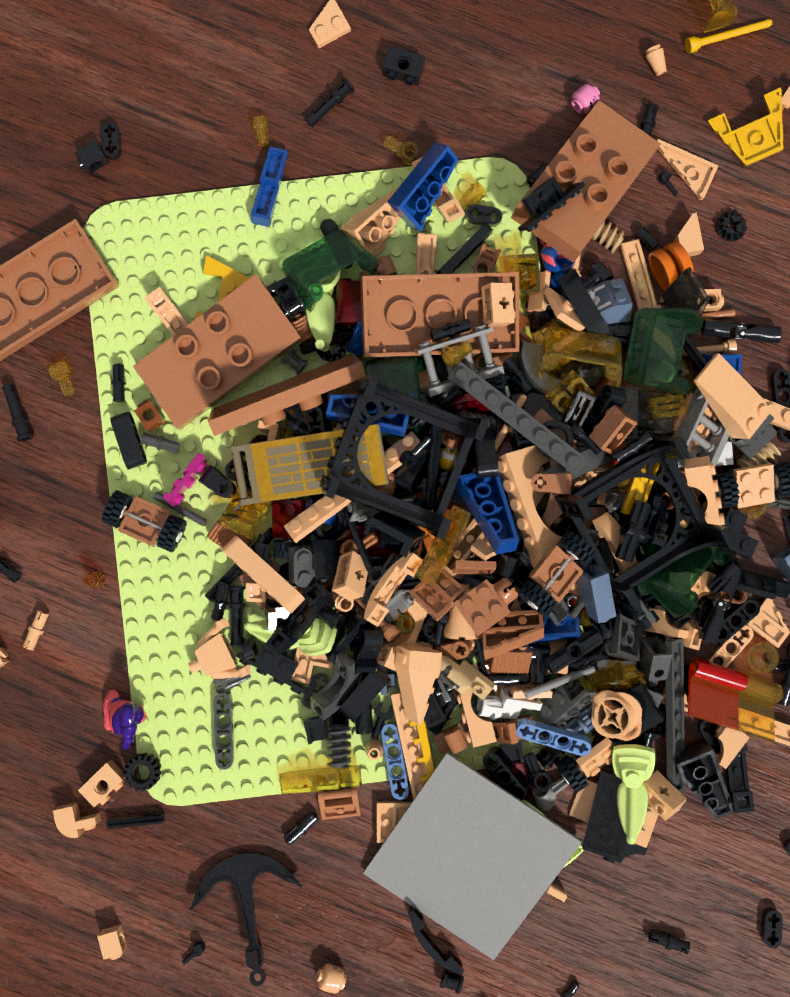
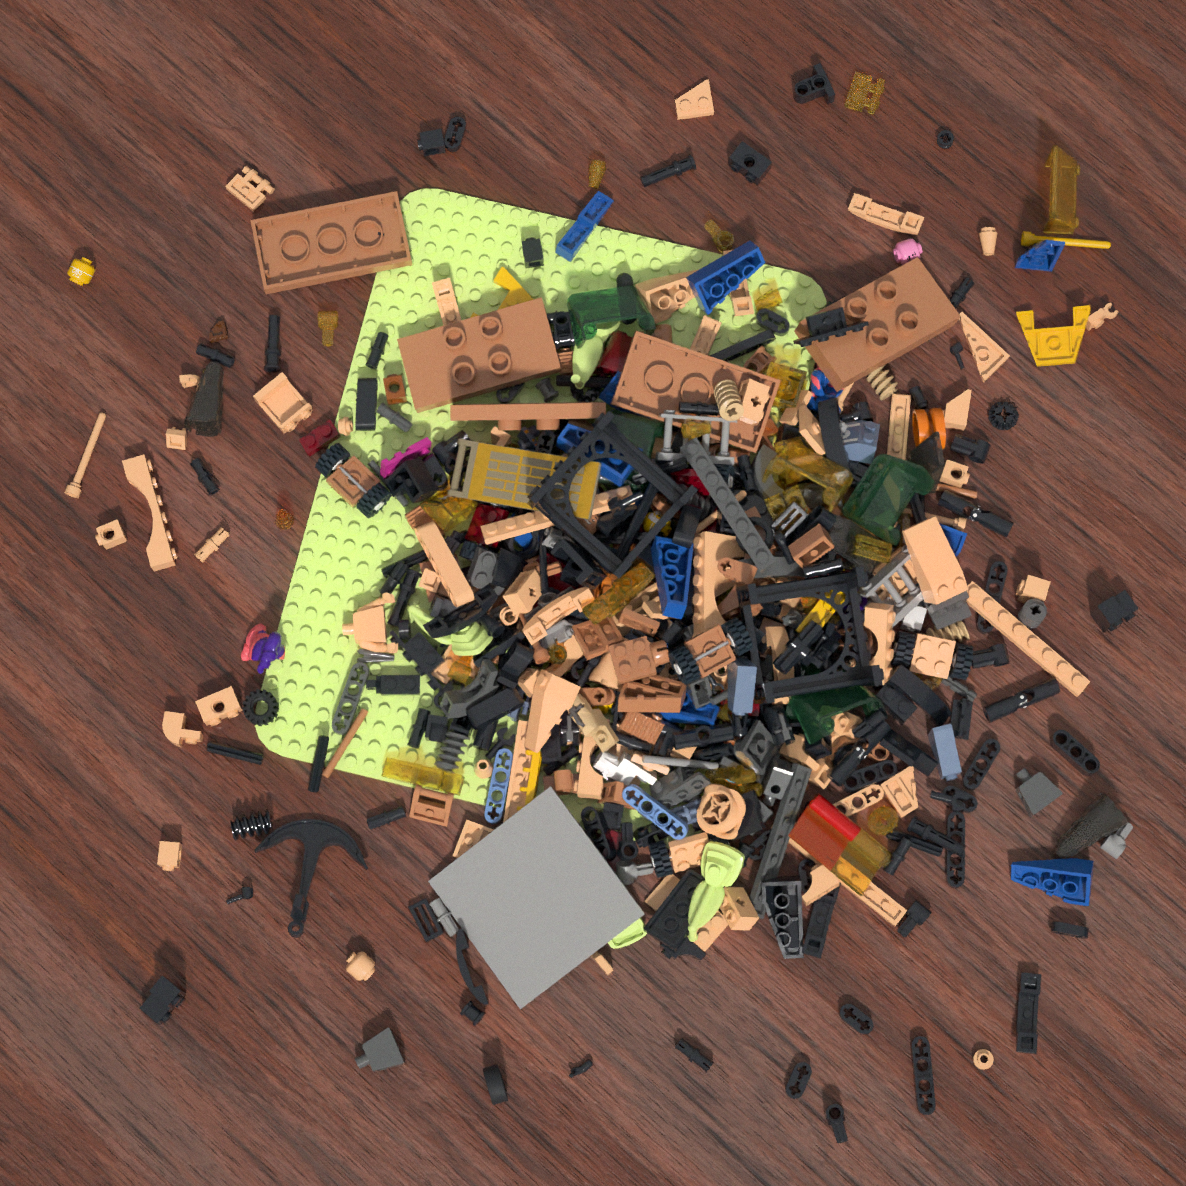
camera: 20 degrees right, 10 degrees down
(49, 467) = (283, 403): none -> light nougat panel
(97, 488) = (319, 437): none -> dark red plate
(116, 469) = (345, 426): none -> light nougat plate
(178, 887) = (251, 824): none -> black piece
(201, 500) = (412, 479): none -> black brick
(218, 803) = (318, 763): none -> black axle
(222, 455) = (449, 448): none -> black piece
(230, 231) = (532, 253): none -> black brick
(235, 774) = (345, 742): none -> nougat bar
(261, 701) = (395, 685): none -> black hinge
(263, 377) = (514, 391): none -> black beam
(299, 734) = (418, 728): none -> black pin
(317, 668) = (461, 669): none -> clear yellow axle
(376, 900) = (418, 905): none -> black tile
(391, 901) = (444, 917): none -> light grey axle
(478, 312) = (728, 400): none -> tan piece
(552, 72) = (884, 216): none -> light nougat slope
(718, 53) = (1041, 256): none -> blue wedge
(718, 269) = (975, 449): none -> black piece
(756, 527) = (921, 694): none -> black slope

